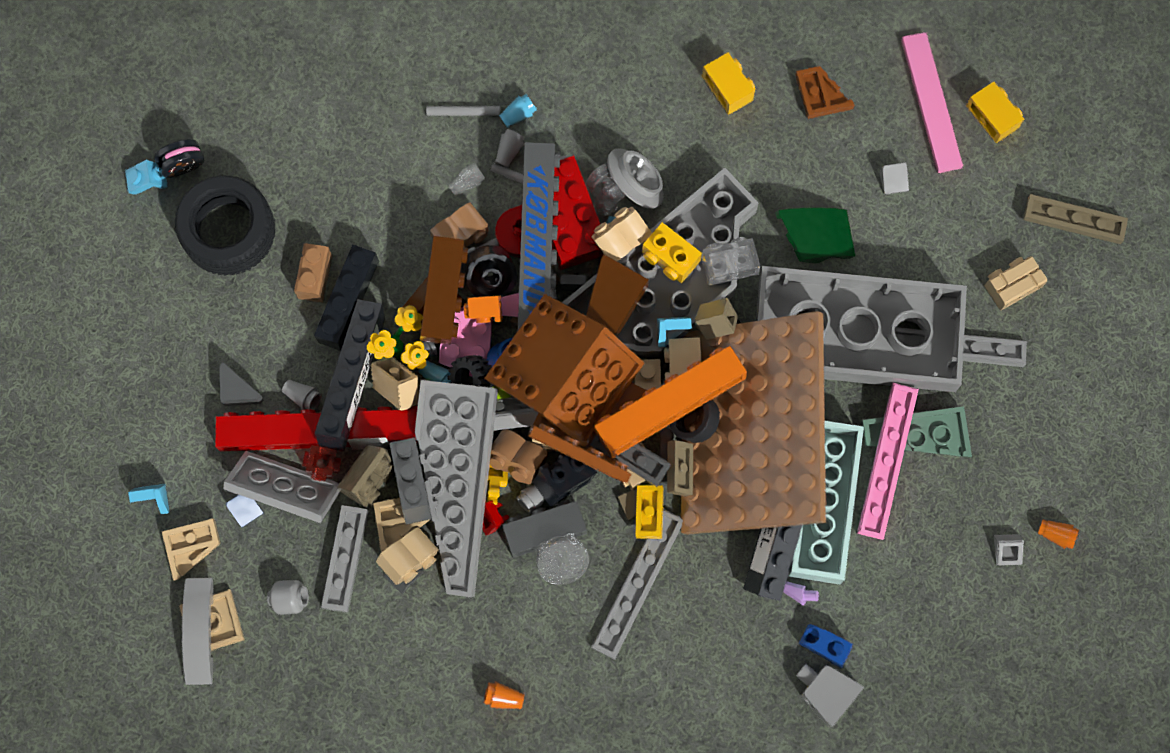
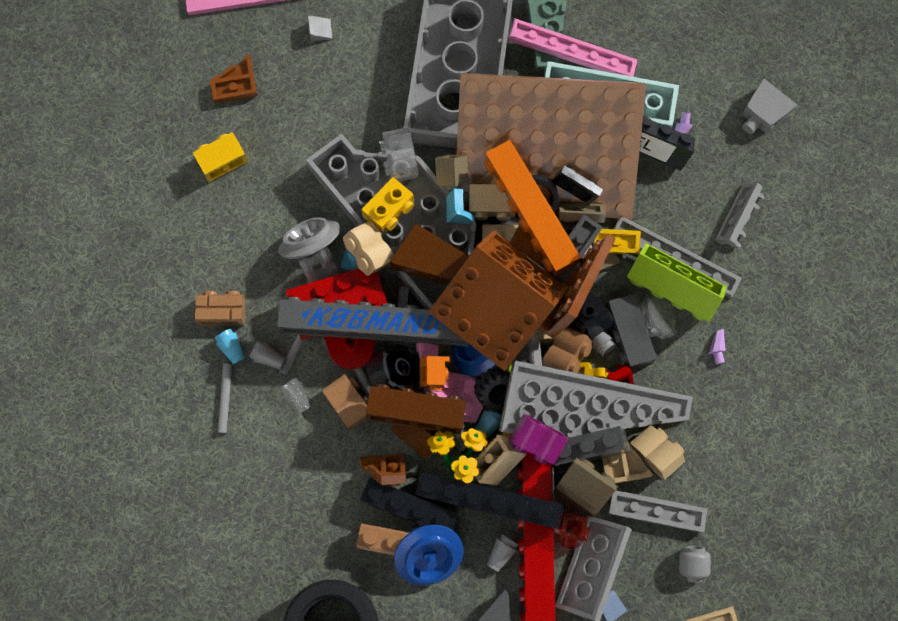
camera: 90 degrees left, 0 degrees up
(296, 316) = (428, 555): none -> blue piece
(387, 272) = (385, 469): none -> dark orange wing
(412, 418) = (538, 439): none -> magenta brick
(501, 696) = (777, 373): orange cone -> none
(532, 630) = (718, 347): none -> lavender bar
(556, 97) = (220, 309): none -> medium nougat brick
(601, 576) = (677, 283): none -> lime brick
(691, 657) = (740, 214): none -> light grey plate
(704, 467) = (577, 185): none -> black plate
(818, 233) = (368, 90): dark green slope -> none
(826, 645) = (727, 107): blue leg -> none

